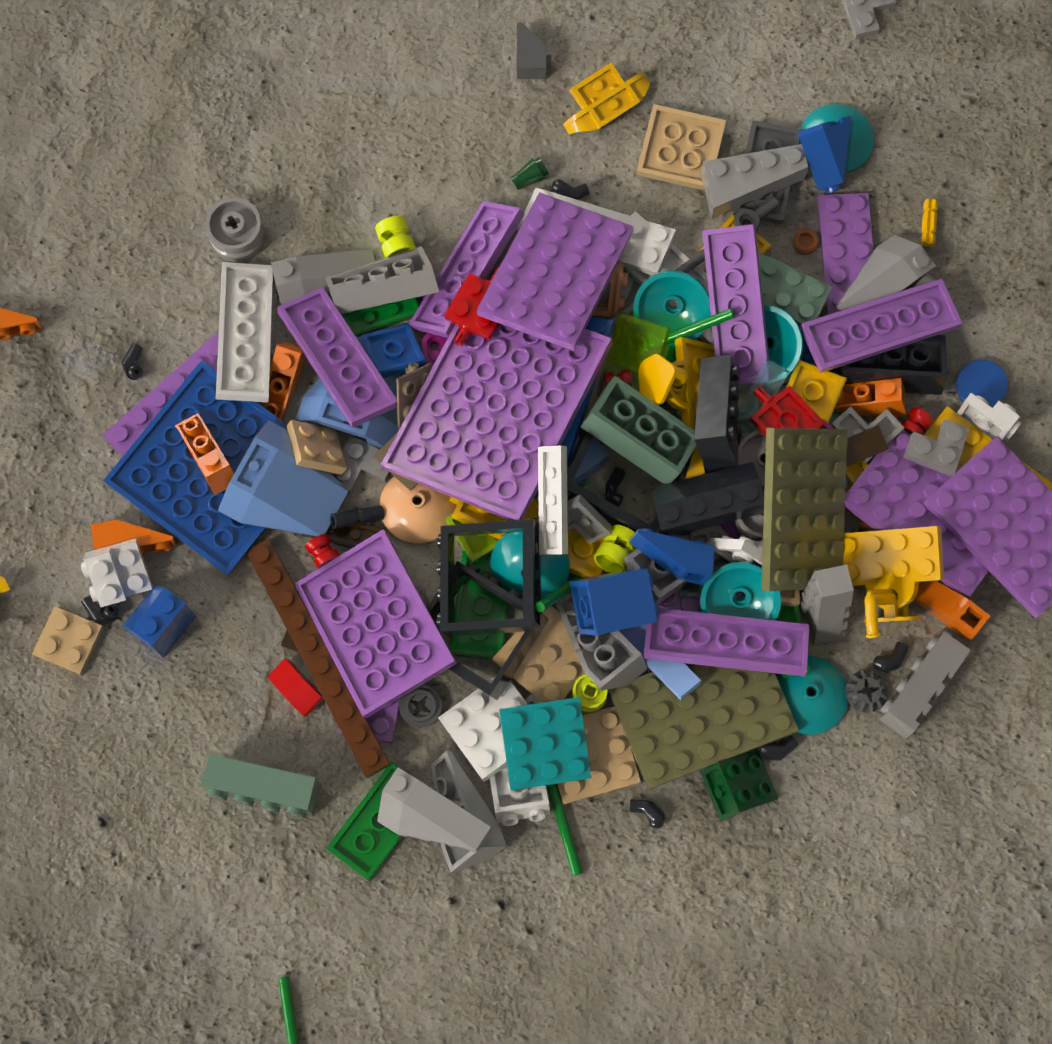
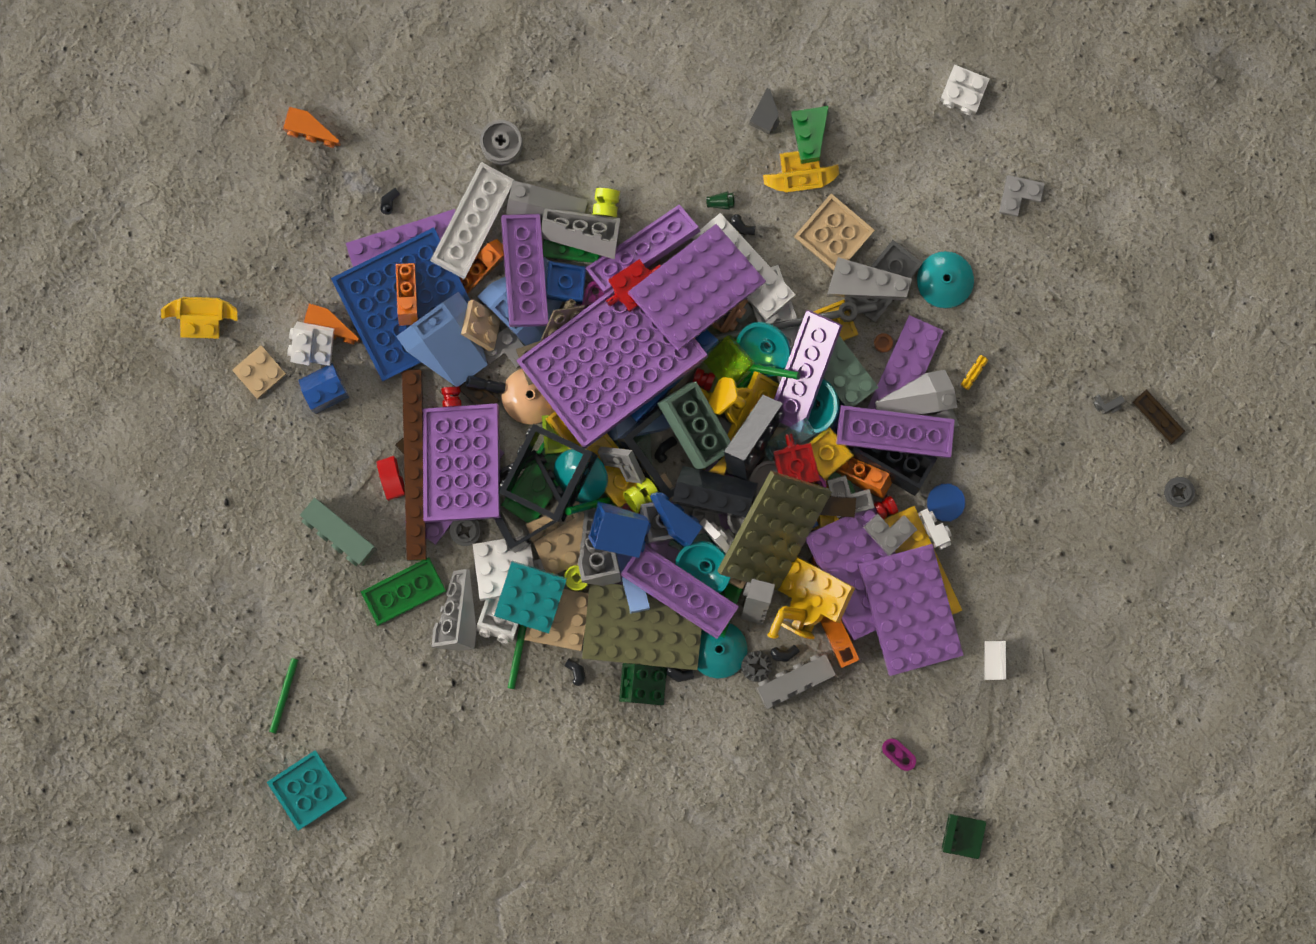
camera: 25 degrees right, 10 degrees up
(100, 614) = (291, 367): black arm -> none
(422, 813) = (431, 602): light grey wedge -> none
(552, 500) = (612, 445): white plate -> none
(592, 50) = (809, 132): none -> green wing
(828, 152) = (928, 290): blue slope -> none

